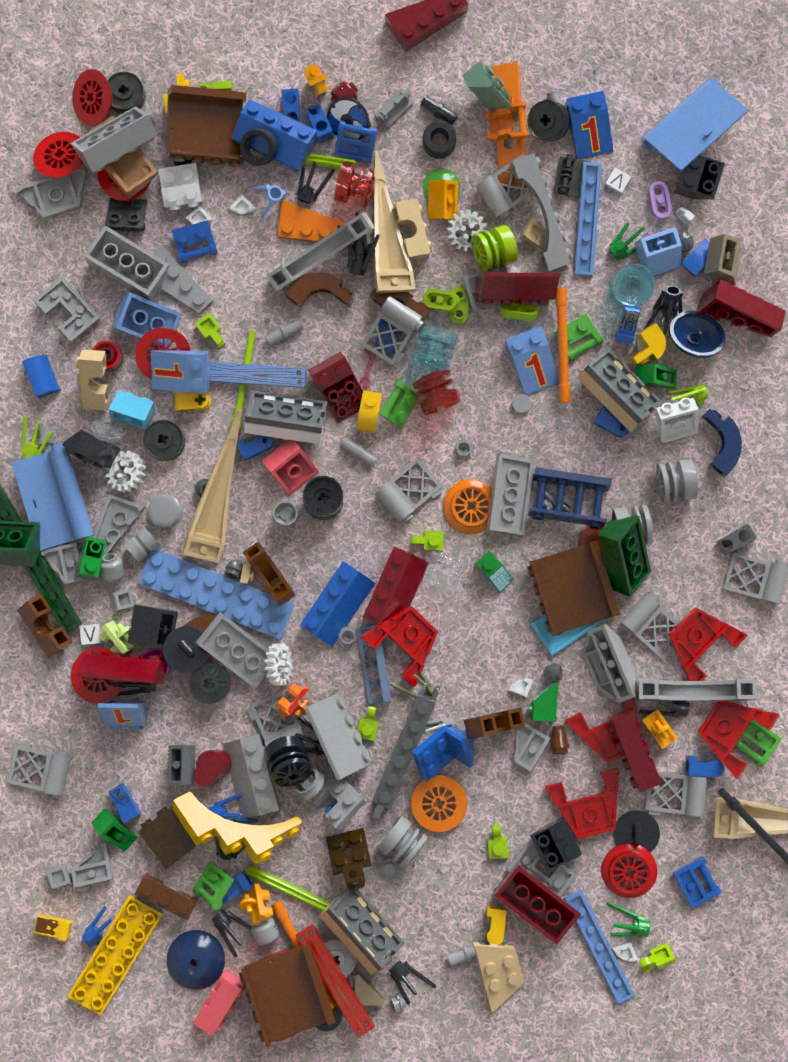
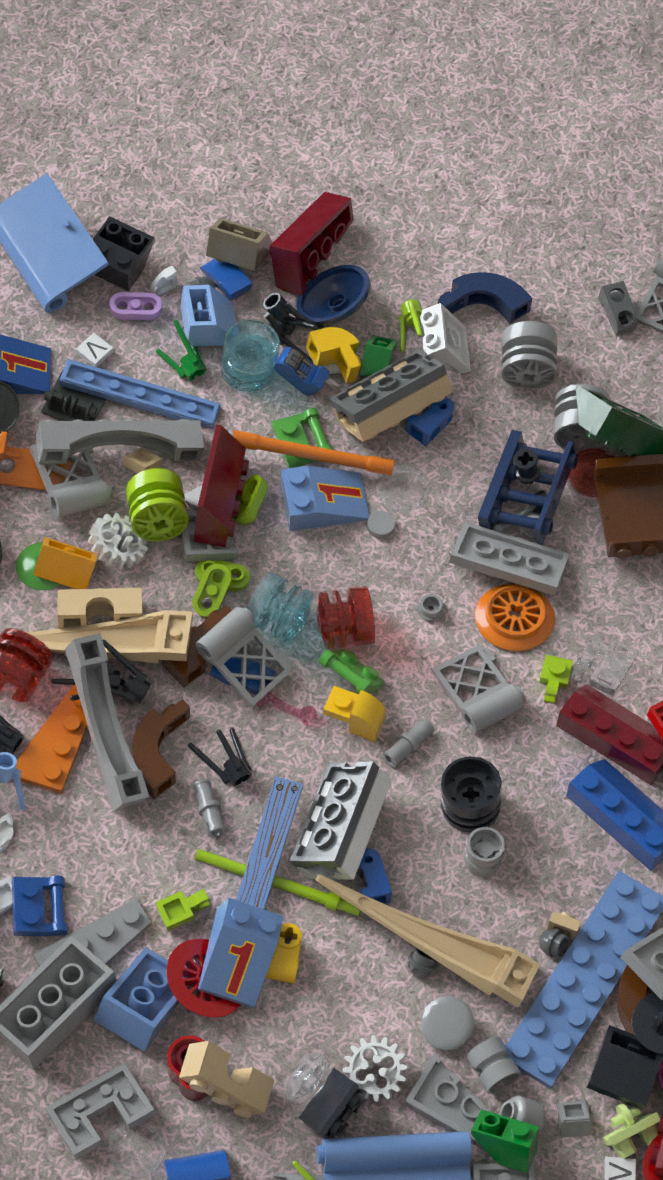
camera: 85 degrees left, 25 degrees down
(132, 409) = (282, 1039): medium azure brick -> none
(174, 444) = (323, 1013): pearl dark grey wheel -> none
(269, 573) = (574, 890): reddish brown arch -> none
(290, 466) = (411, 835): coral slope -> none
(314, 343) = (236, 769): none -> black plant
(338, 386) = (304, 747): dark red slope -> none
(494, 571) = (611, 602): slope -> none
(574, 495) = (526, 464): none -> black bush

